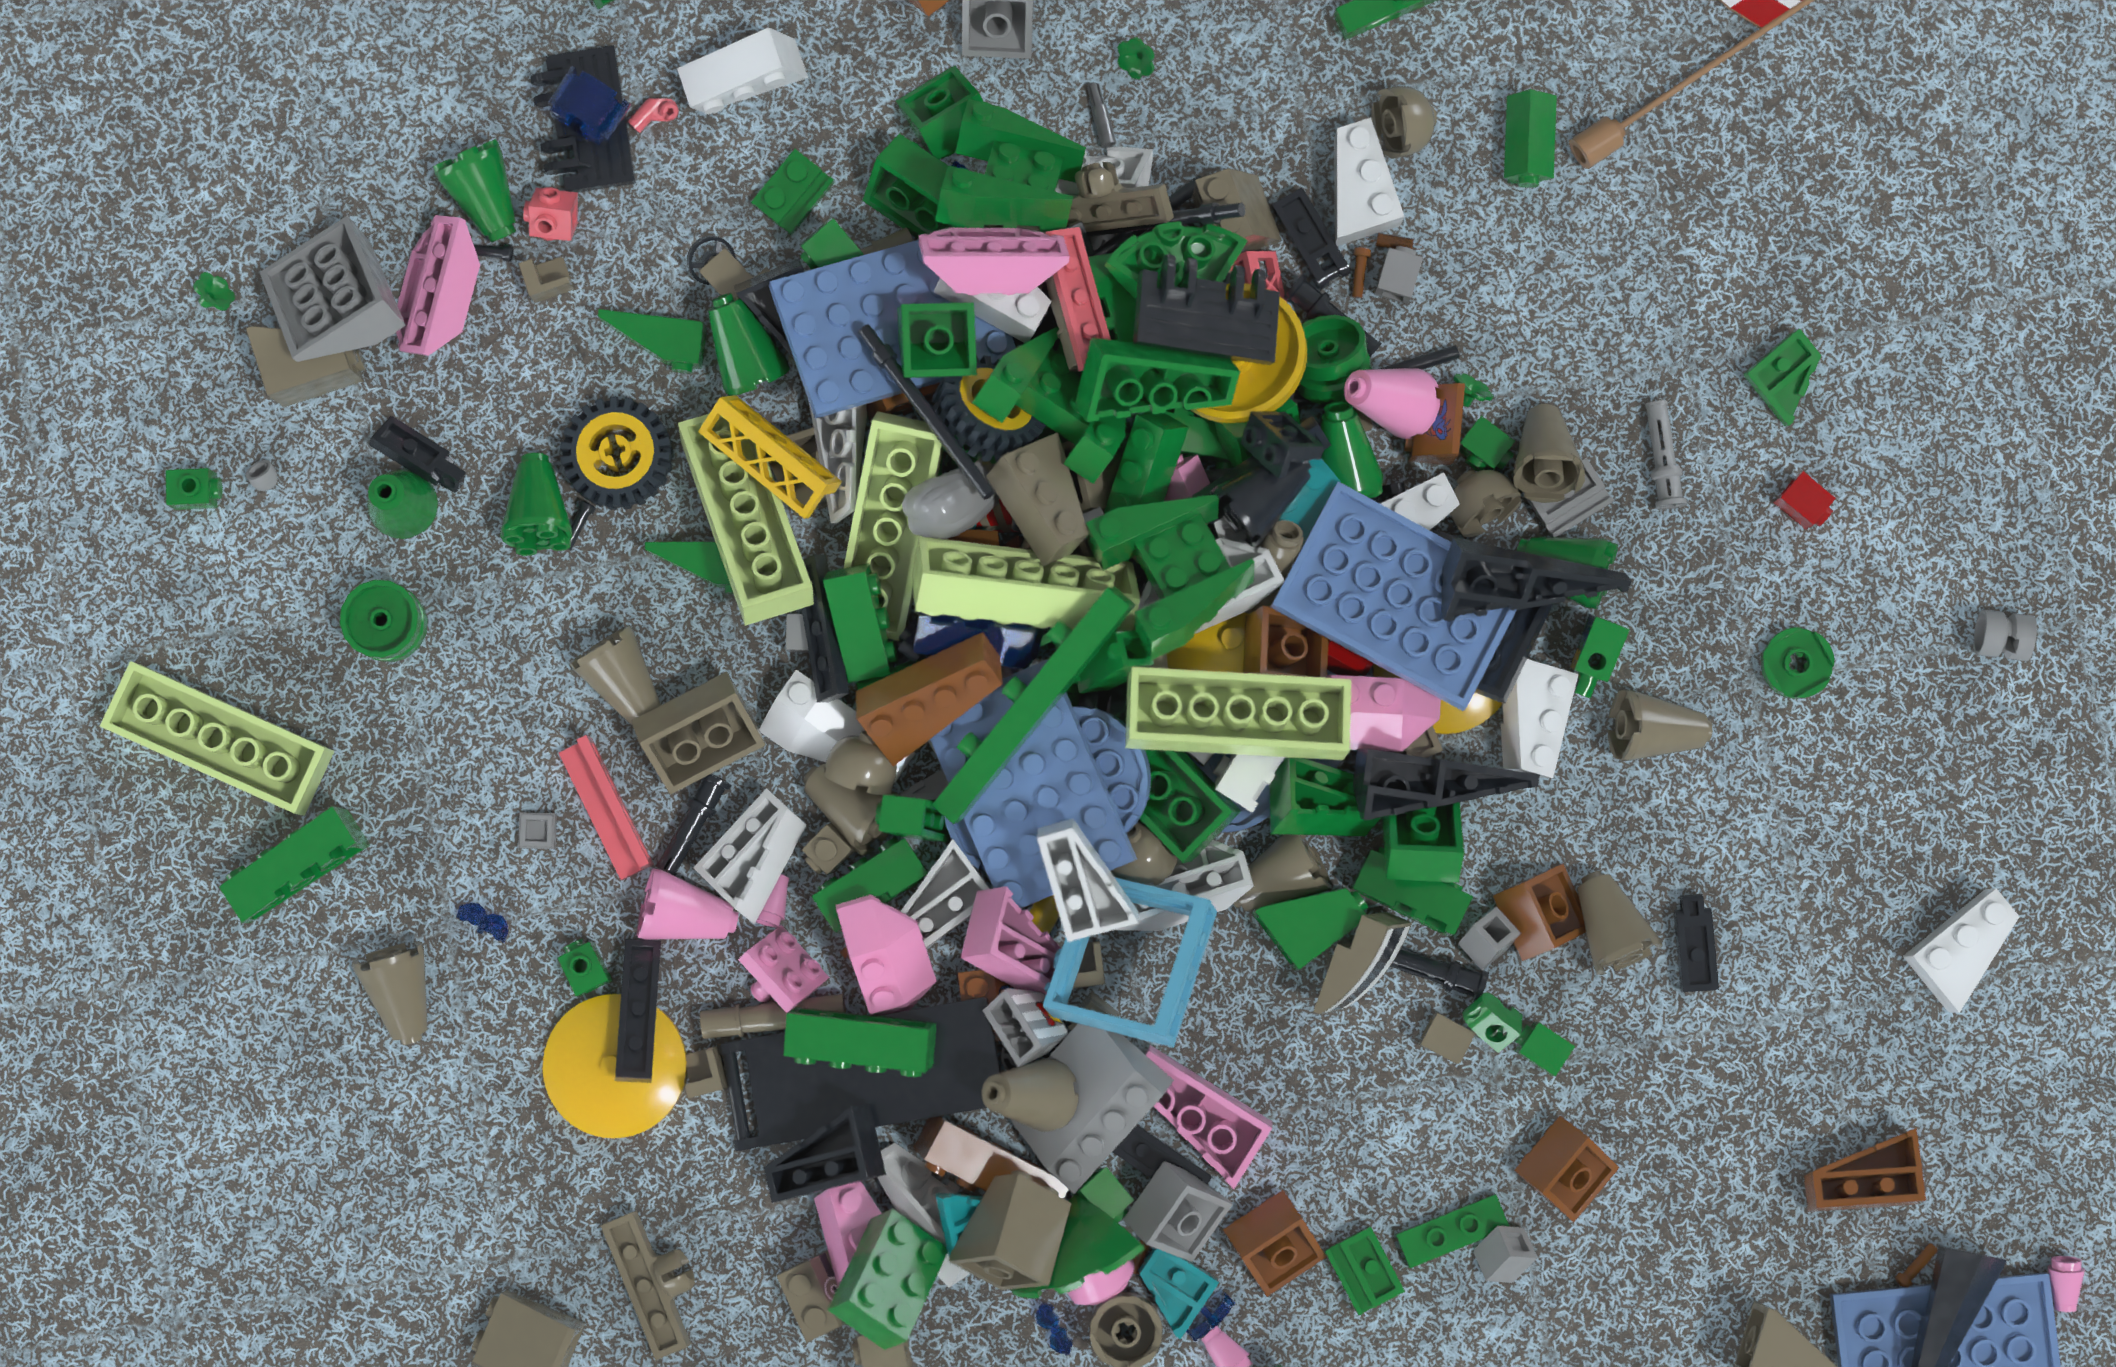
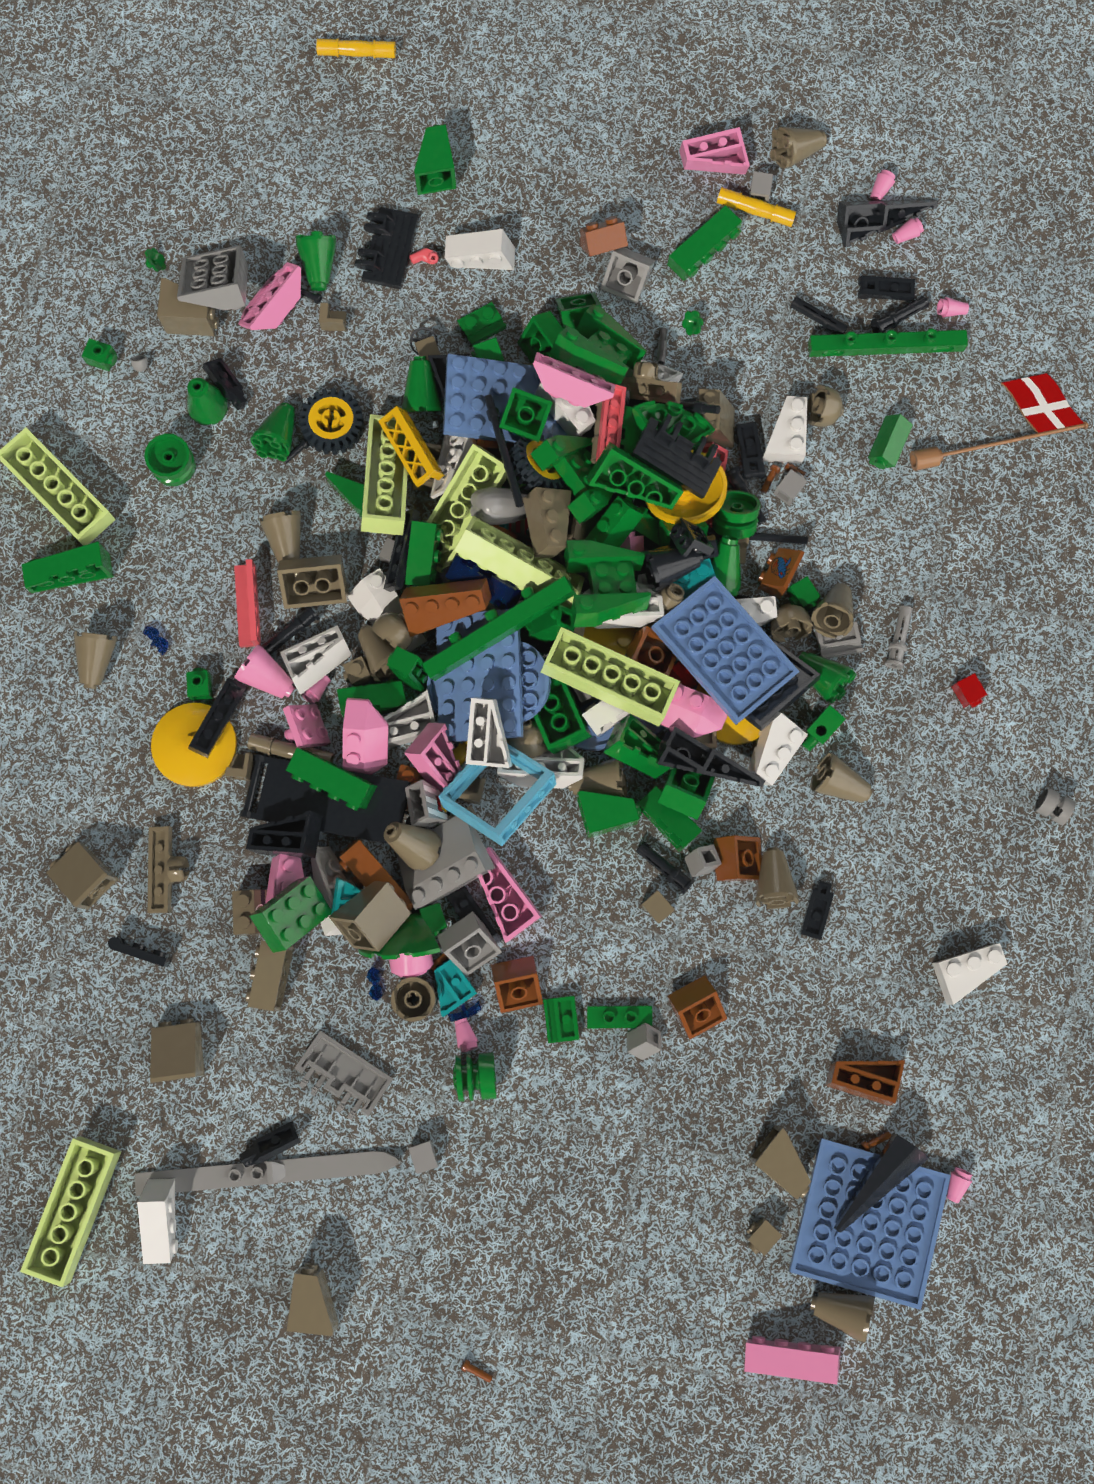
camera: 15 degrees right, 5 degrees down
(537, 831) = (205, 603): light grey tile -> none
(552, 214) = (349, 285): coral brick -> none
(588, 105) = (390, 234): clear blue brick -> none
(670, 340) = (384, 373): green slope -> none
(1362, 963) = (626, 844): dark tan slope -> none
(1395, 399) = (764, 548): bright pink cone -> none
(1473, 389) = (806, 563): green plant -> none
(1492, 1019) = (687, 907): green leg -> none
(1493, 577) = (781, 659): black wedge -> none
(1543, 1048) = (709, 933): green brick -> none
(1784, 374) = (983, 619): green wing -> none
(1817, 669) = (941, 769): green plate -> none

